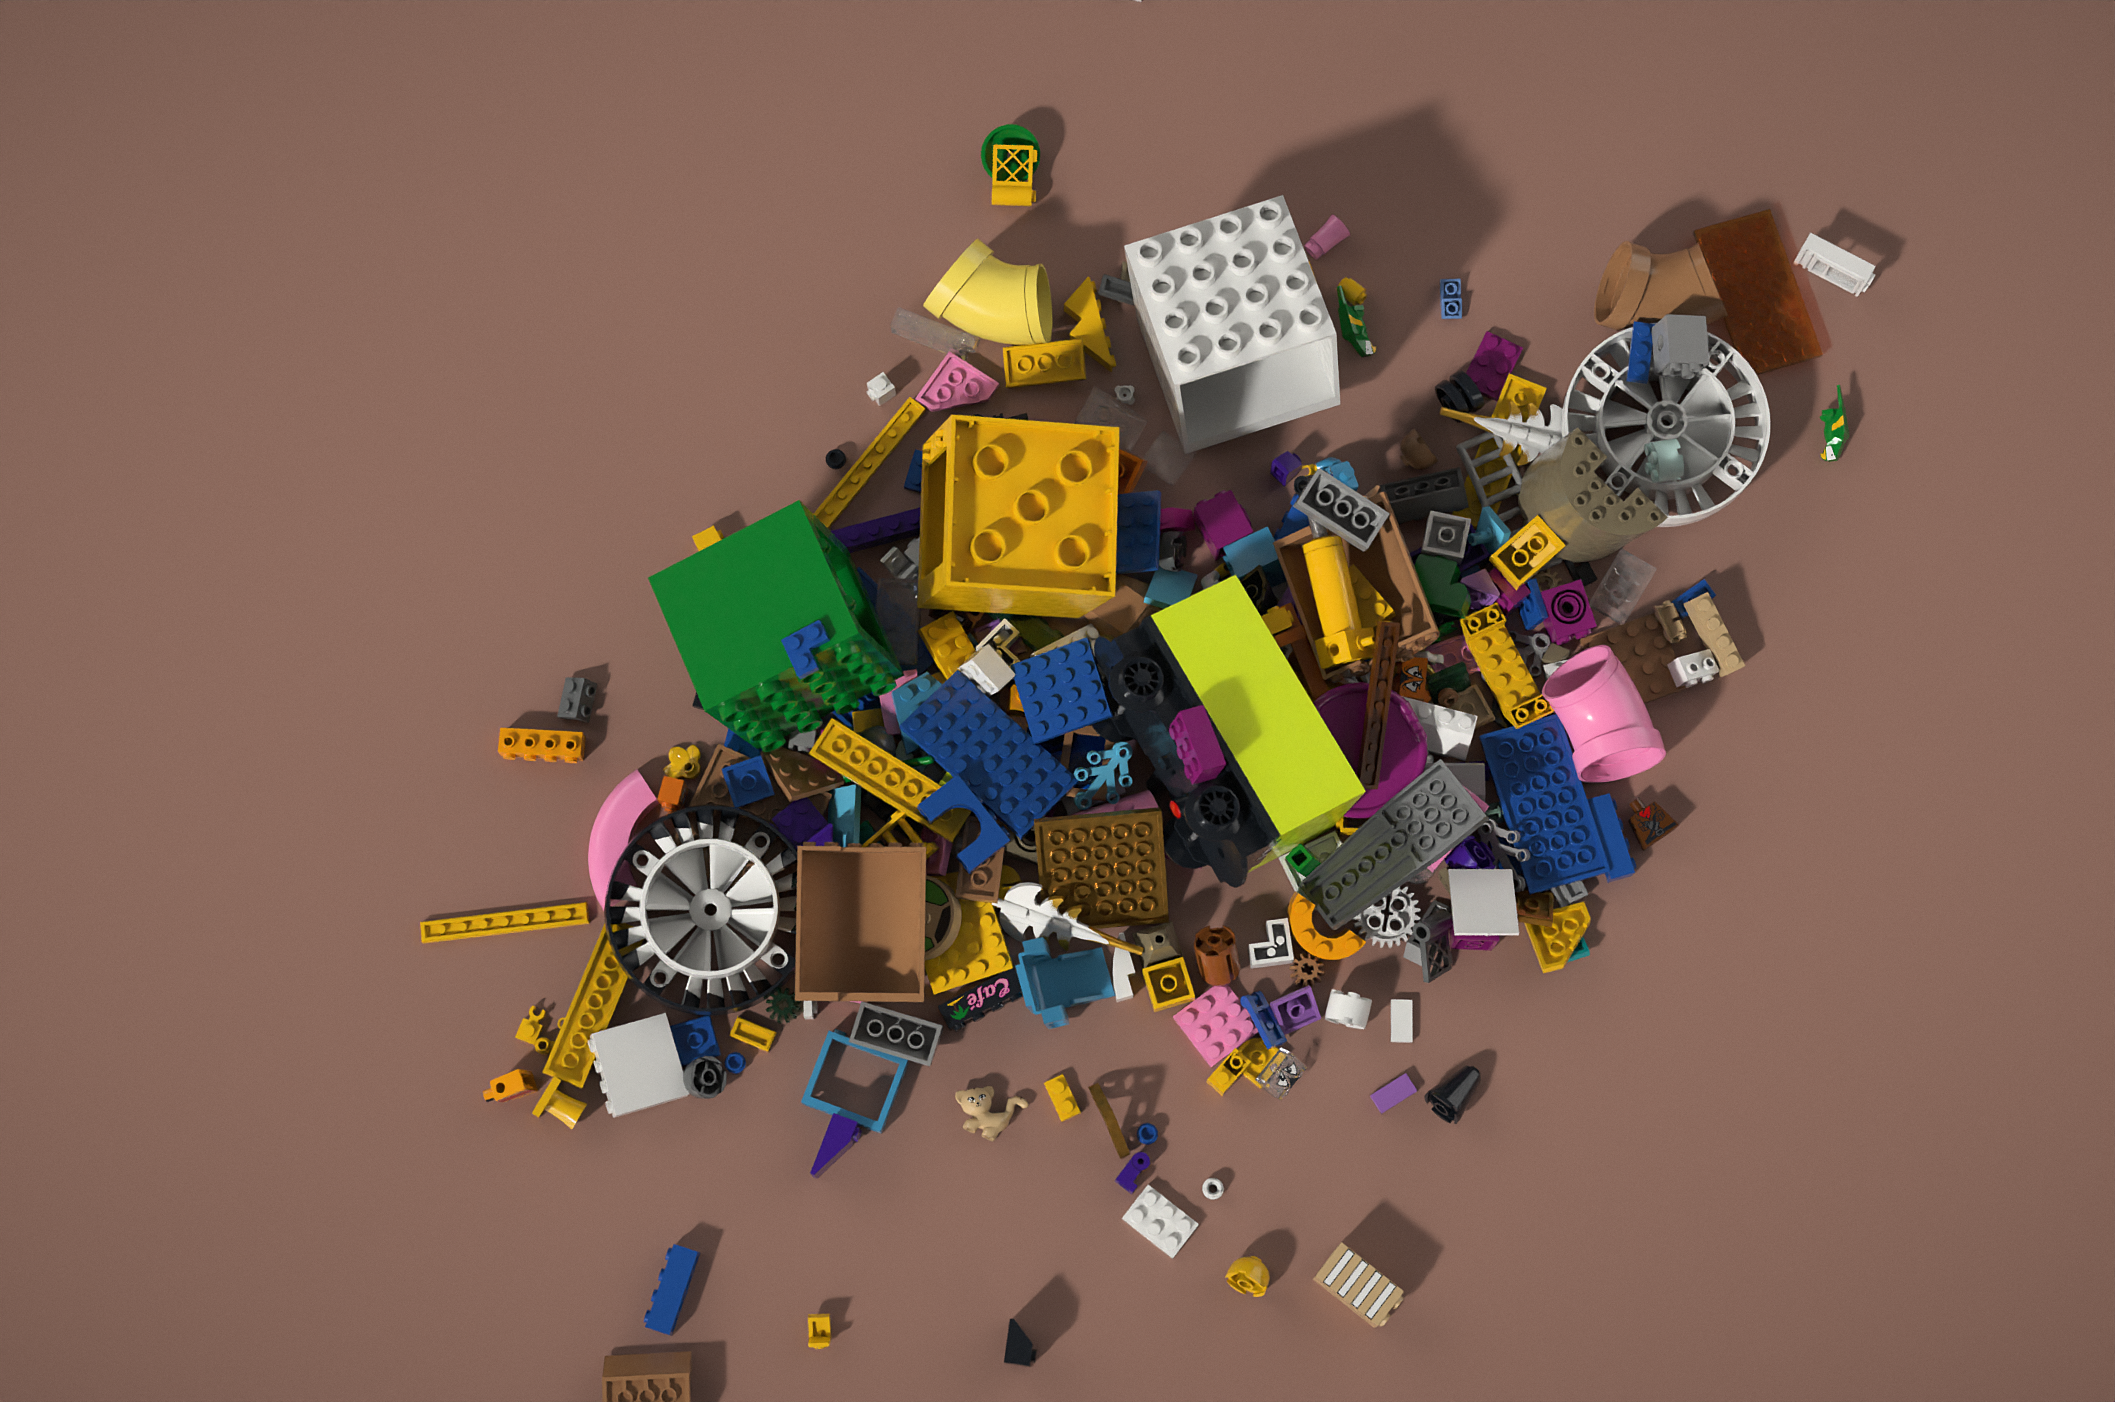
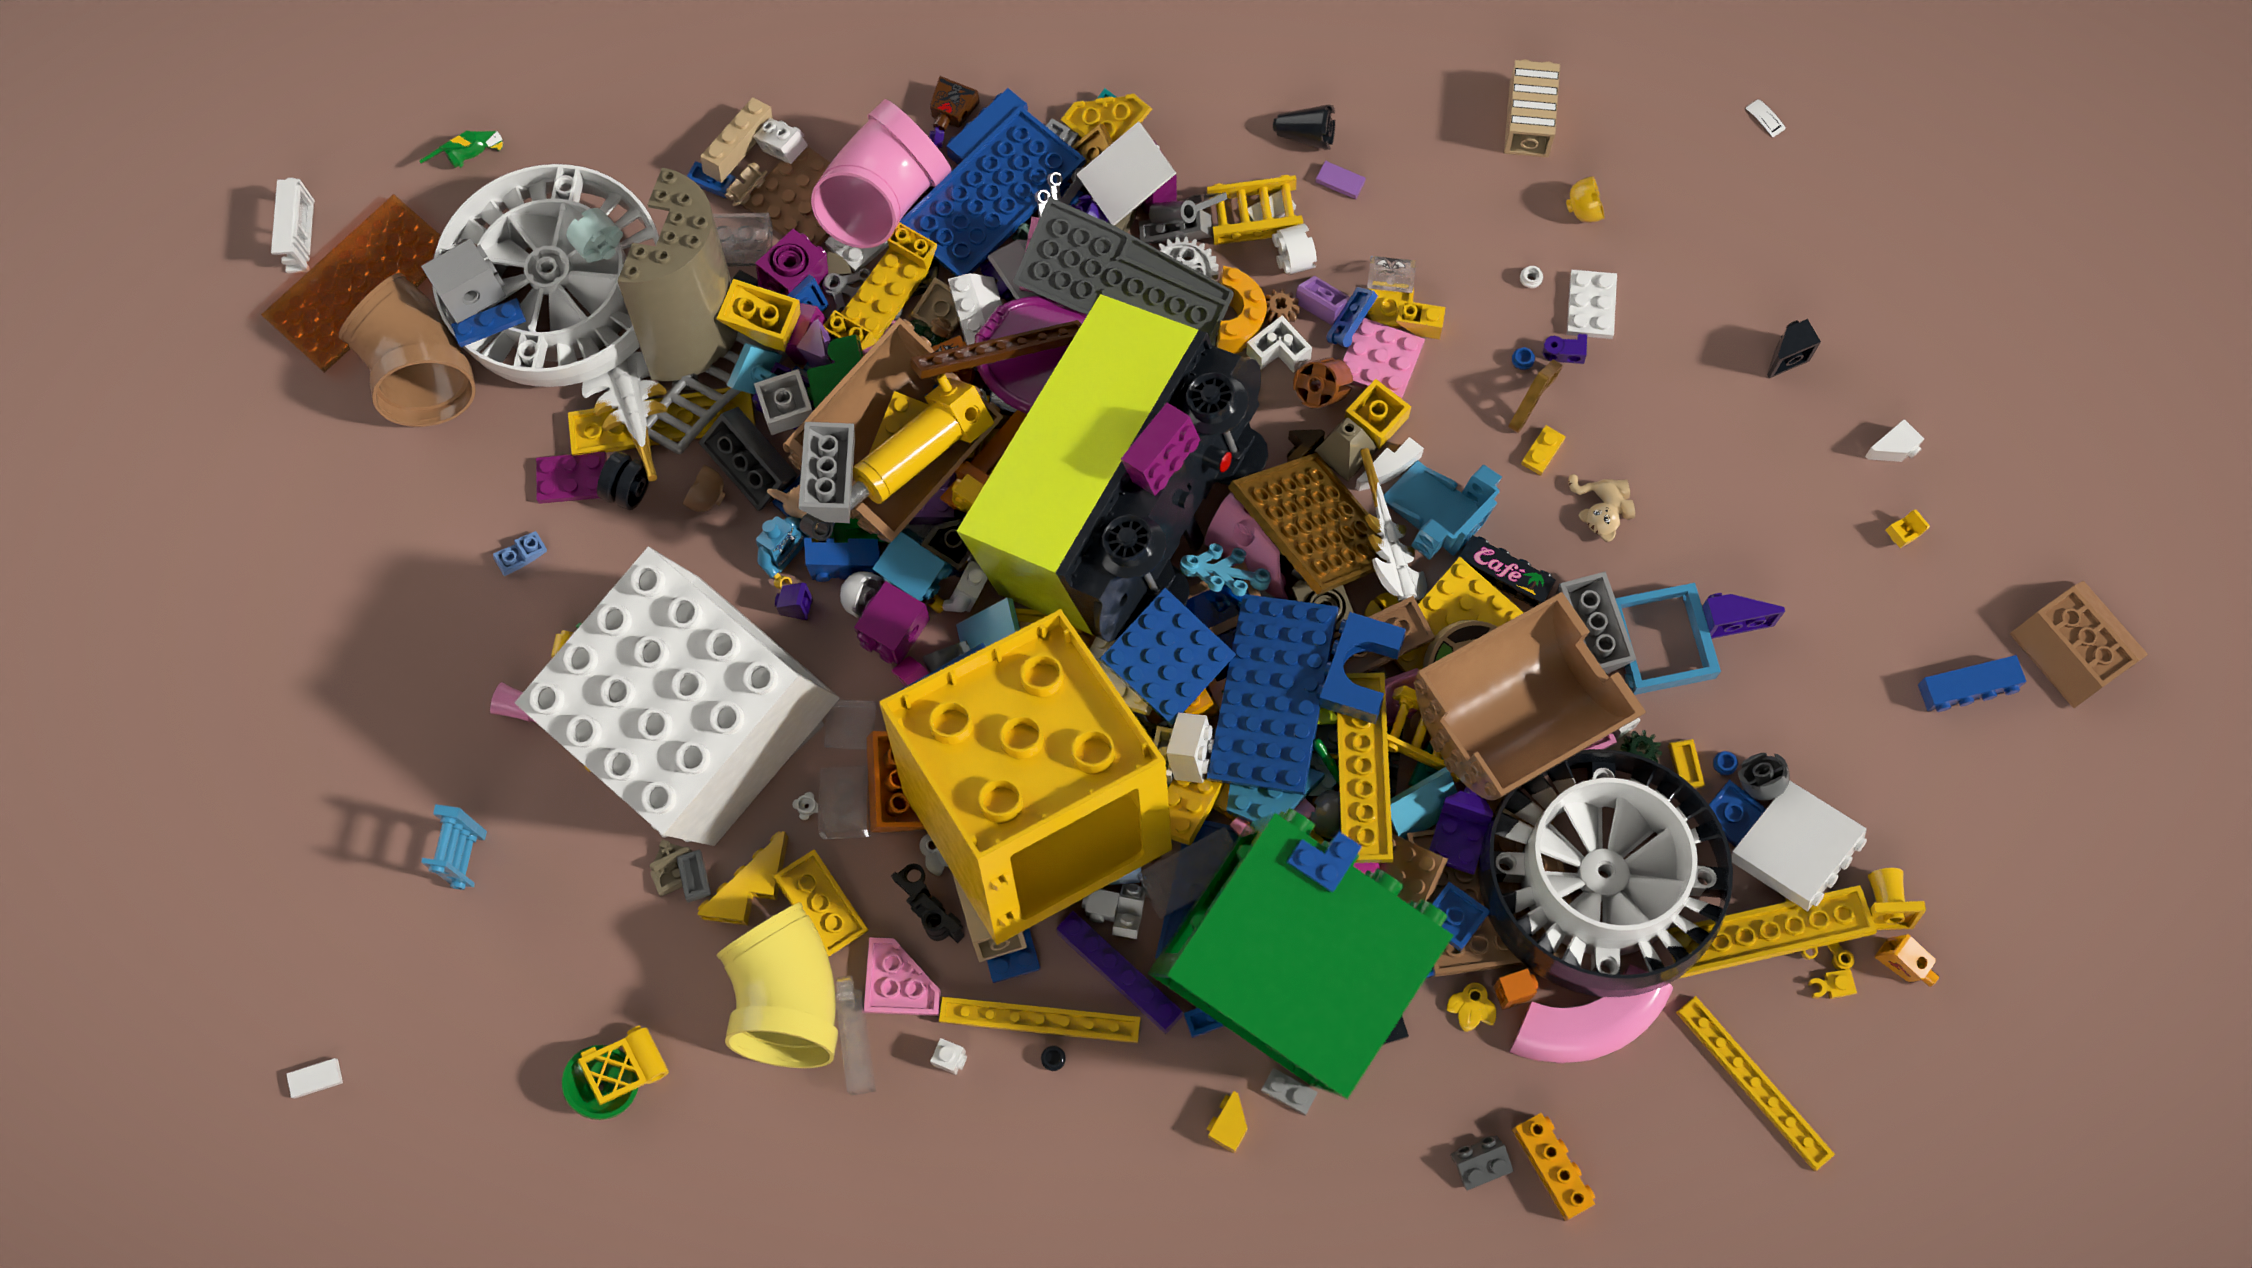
camera: 120 degrees left, 5 degrees down
(890, 1376) = (1897, 444): none -> white slope
(1179, 918) = (1305, 442): none -> dark brown slope
(1236, 136) = (454, 846): none -> dark azure fence
(1263, 514) = (858, 591): none -> white cylinder
(1386, 1007) = (1255, 230): none -> yellow fence
(1625, 793) = (937, 137): none -> dark purple plate

